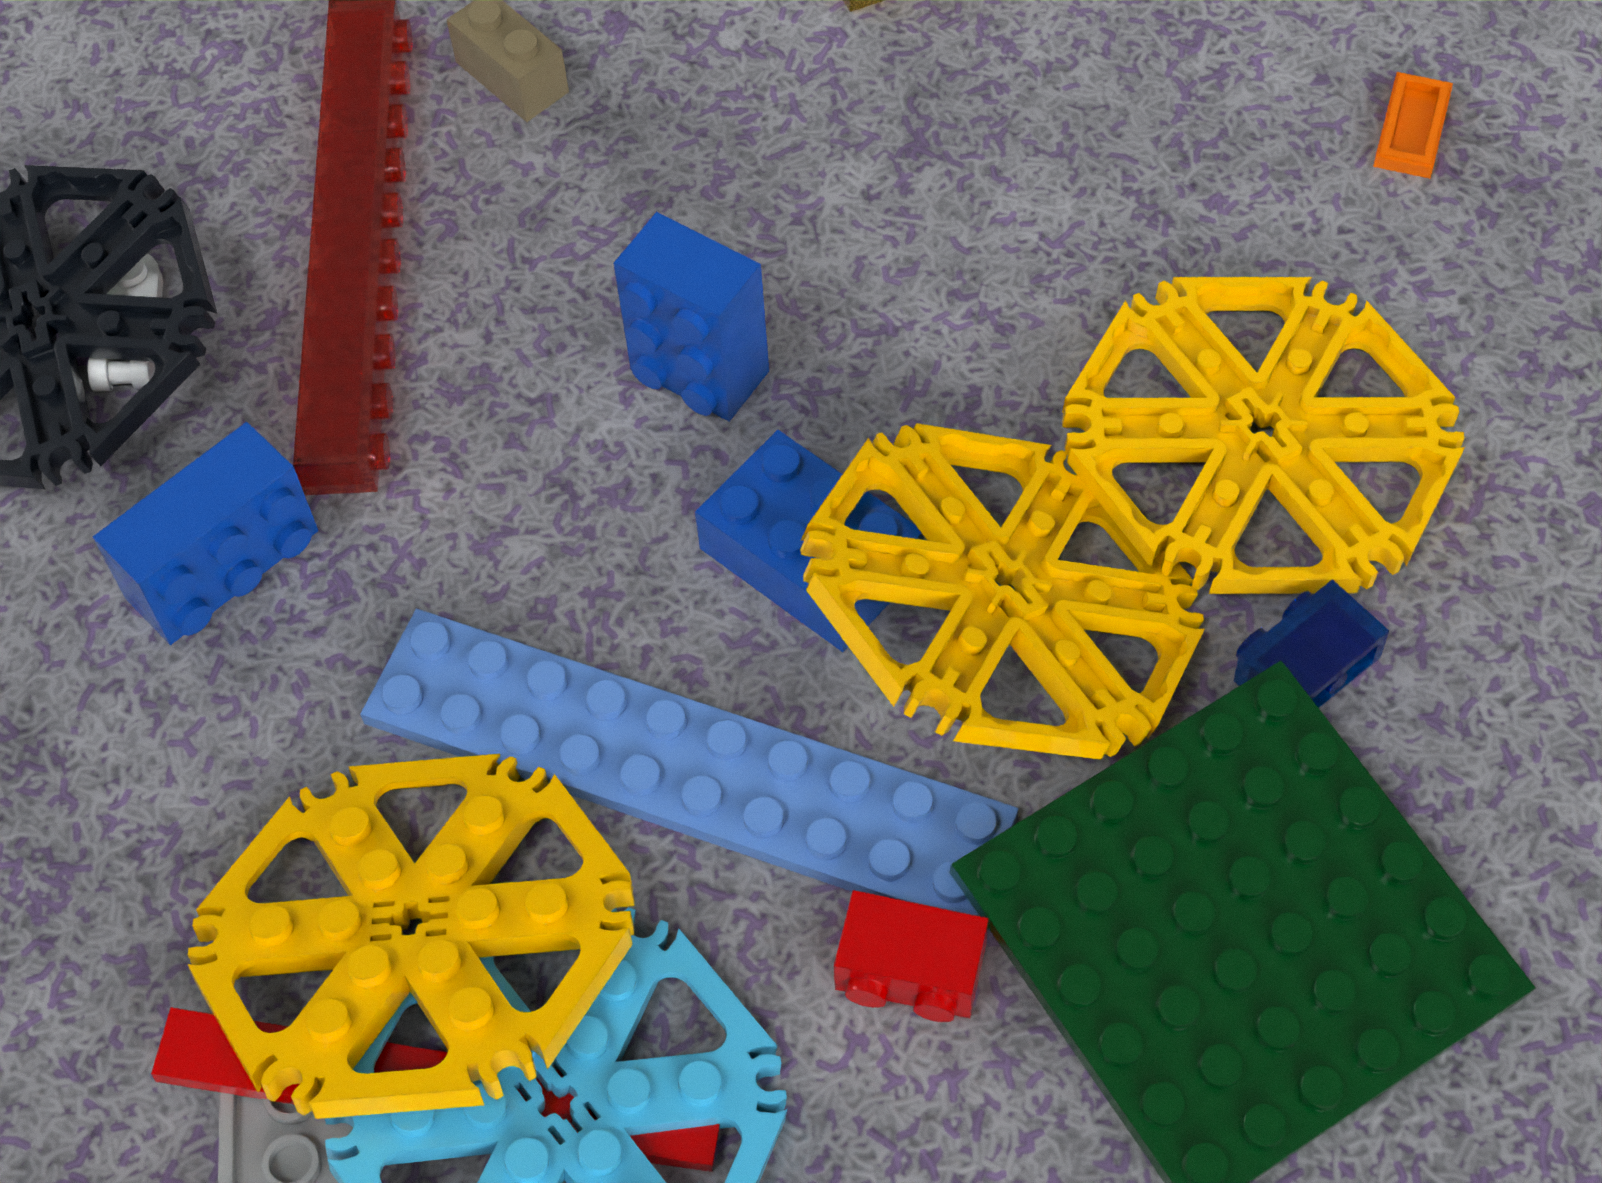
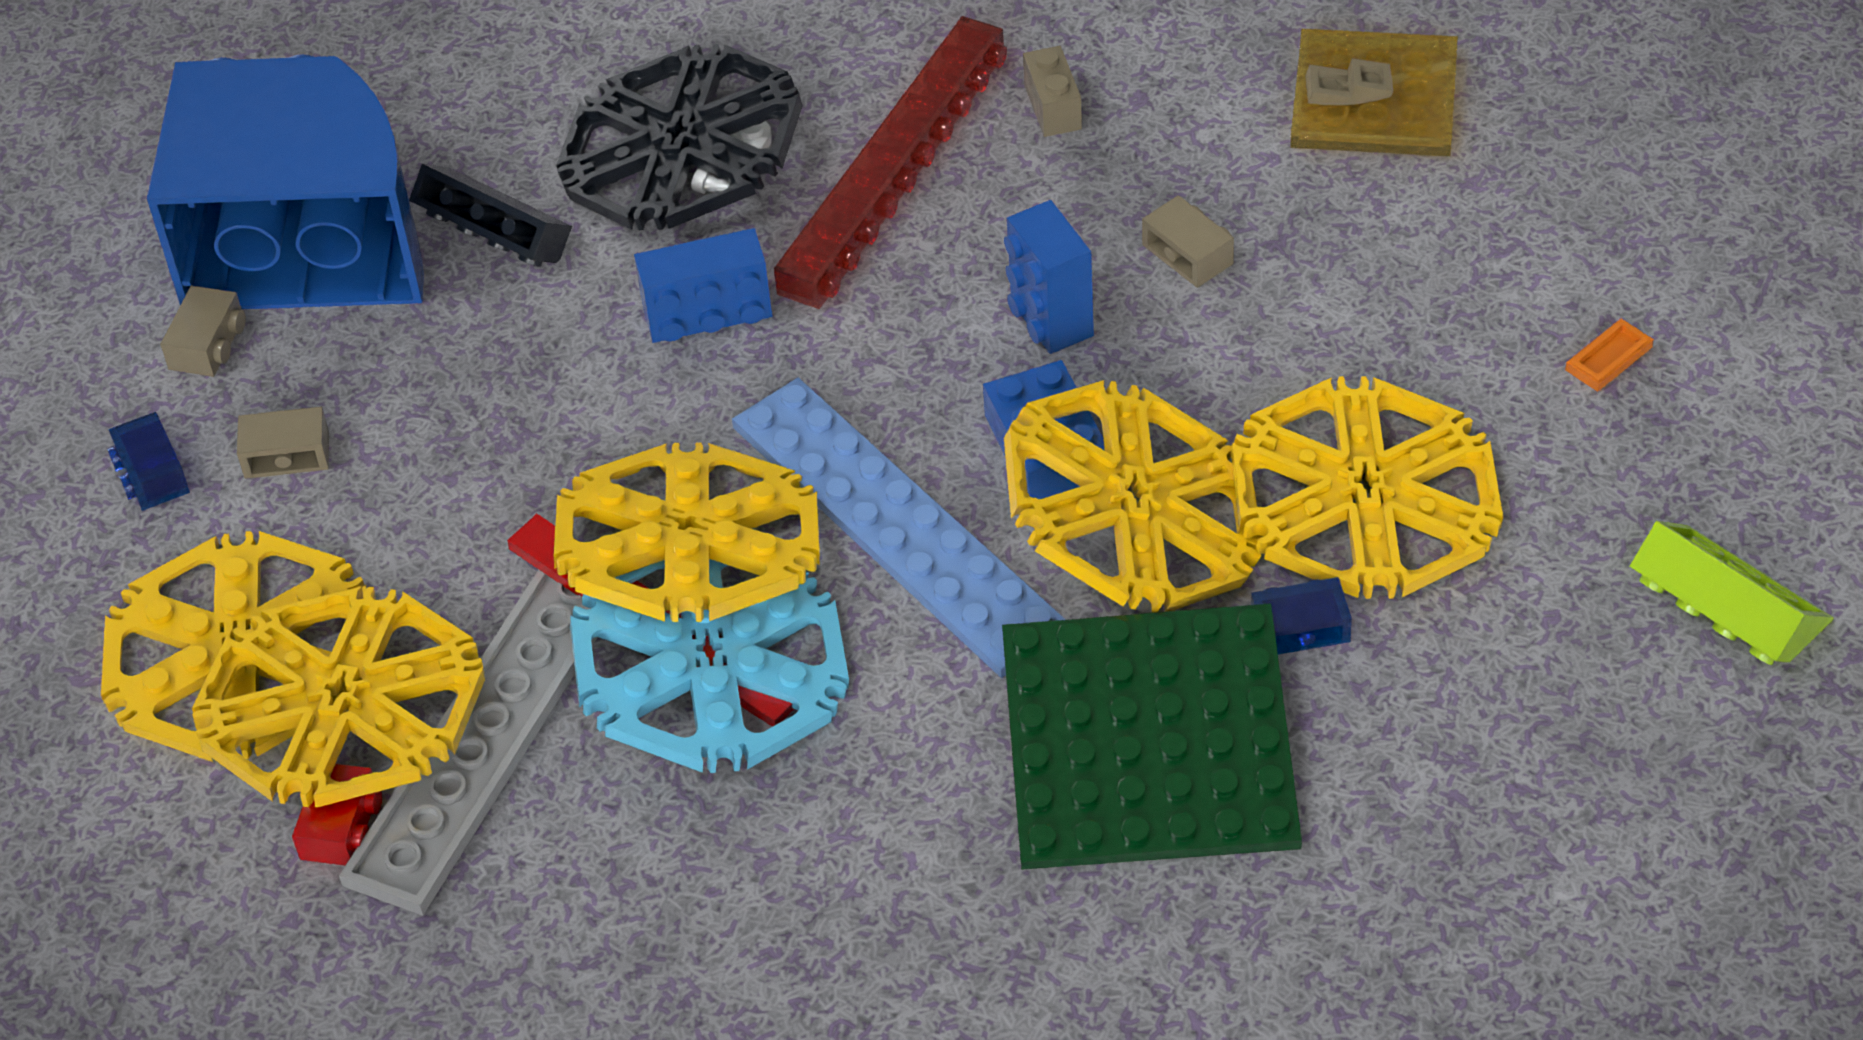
camera: 30 degrees right, 10 degrees down
(814, 189) = (1188, 241): none -> dark tan brick
(910, 956) = (952, 667): red brick -> none

